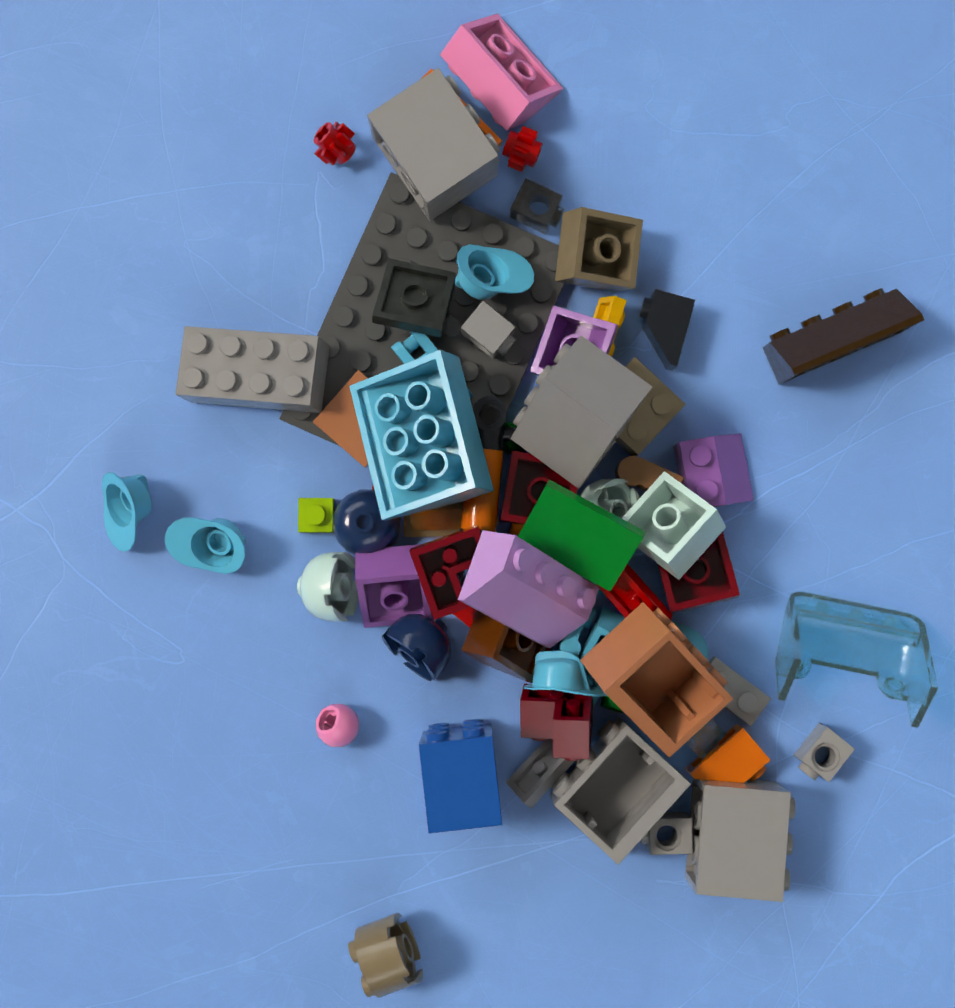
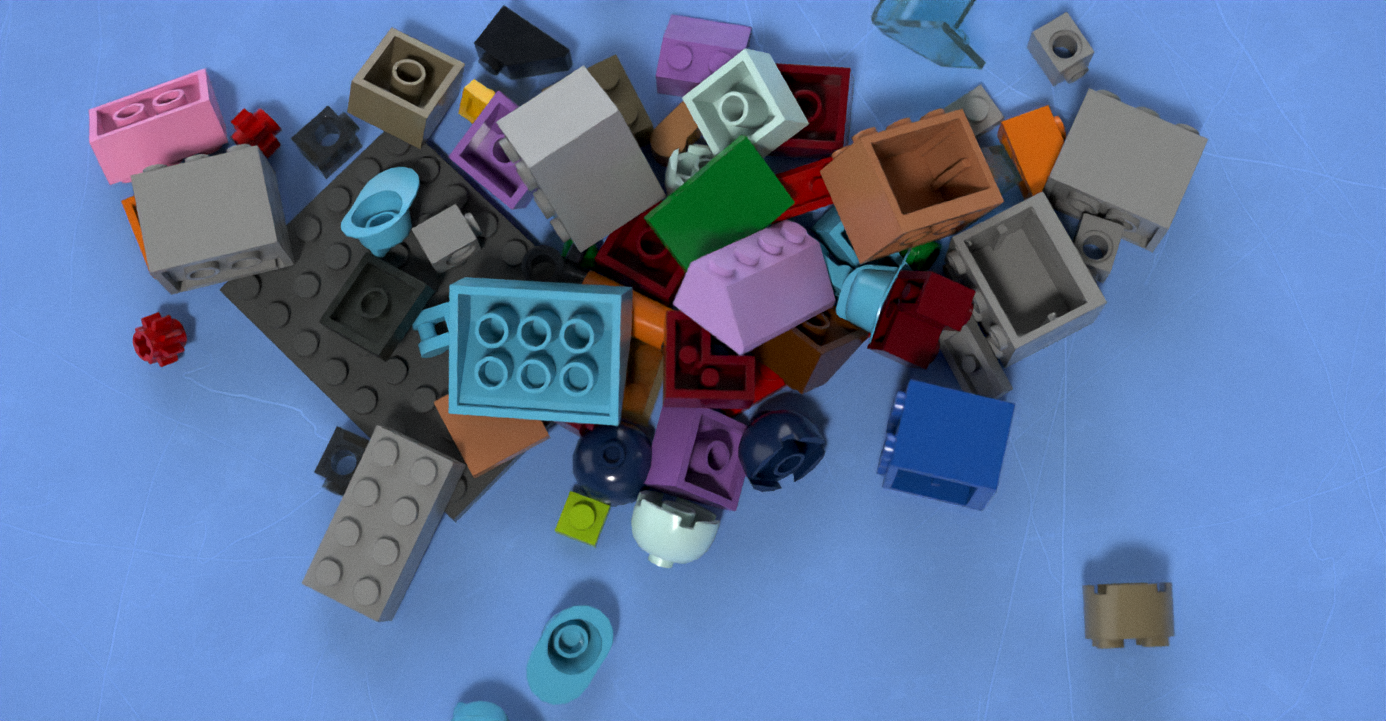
camera: 65 degrees left, 10 degrees down
(280, 310) = (340, 445): none -> clear smoke brick
(337, 725) = (838, 578): bright pink piece -> none

